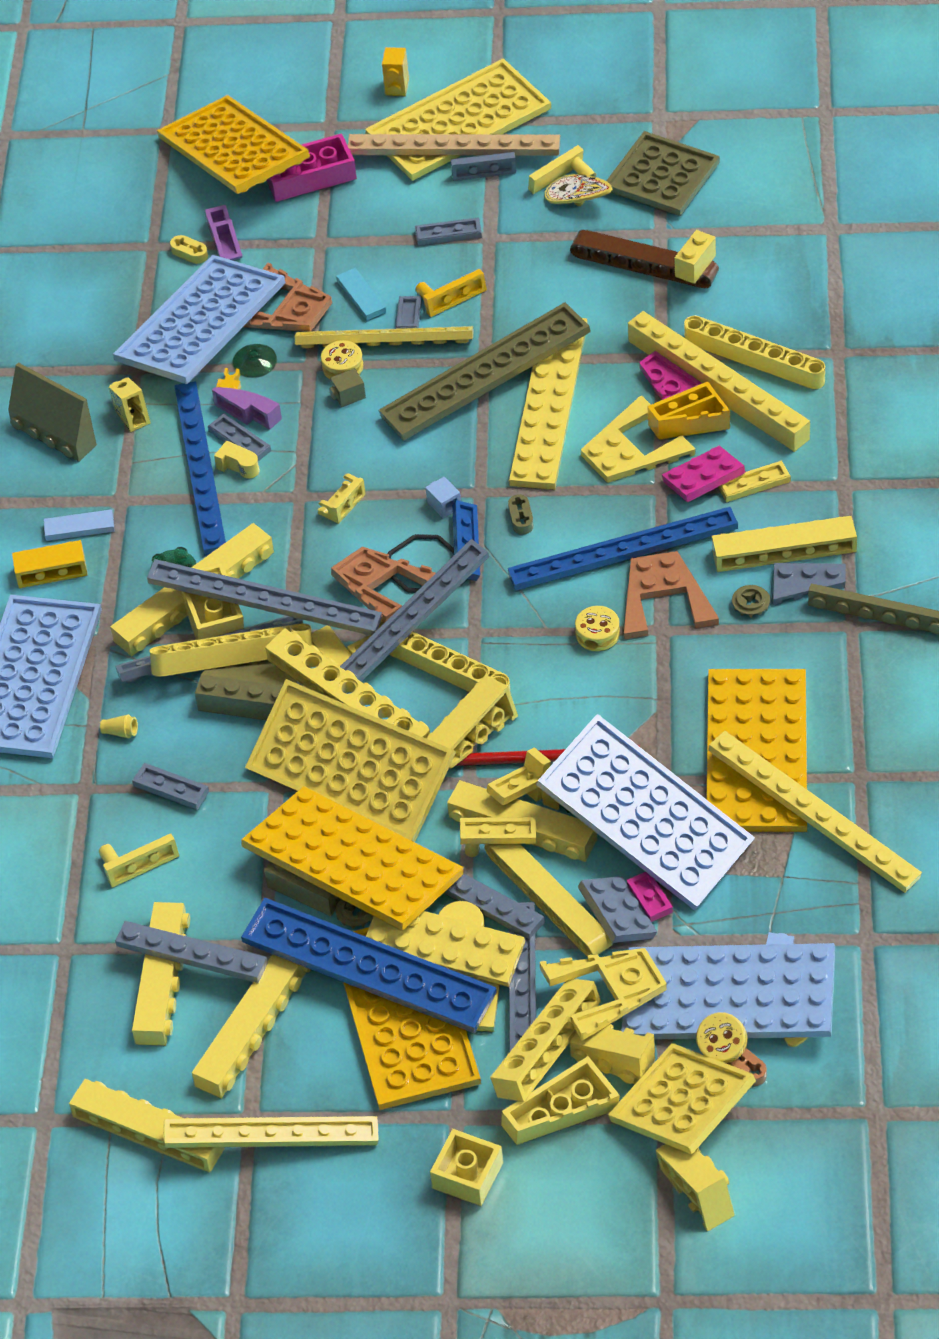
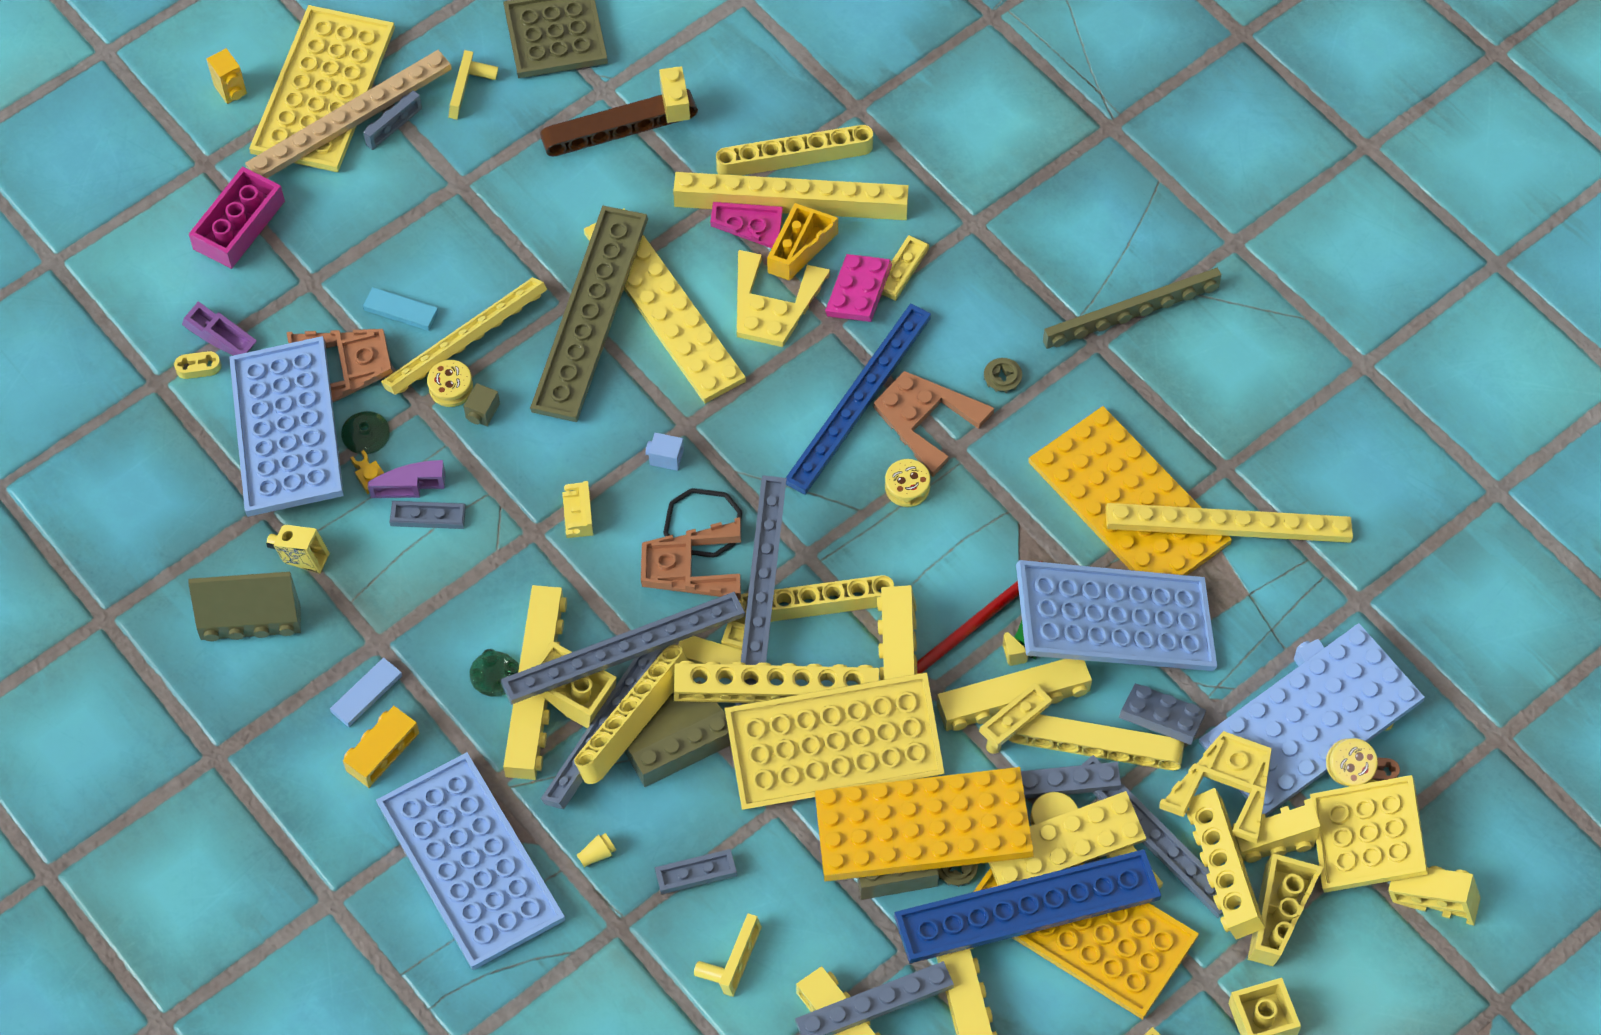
camera: 45 degrees left, 10 degrees up
(200, 467) = (423, 566): blue plate -> none
(233, 144) = (149, 238): yellow plate -> none
(237, 459) = (452, 535): light yellow leg -> none
(408, 312) = (461, 300): sand blue tile -> none
(448, 231) = (419, 201): sand blue tile -> none
(451, 293) = (484, 261): yellow piece -> none
(465, 528) = (722, 476): blue plate -> none
(516, 514) = (744, 421): olive beam -> none
(522, 780) = (991, 657): light yellow bracket -> none
(576, 189) = (499, 92): shield -> none
(650, 896) = (1173, 683): dark pink plate -> none
(784, 543) = (982, 307): light yellow brick -> none
(794, 579) = (1024, 329): sand blue wing -> none

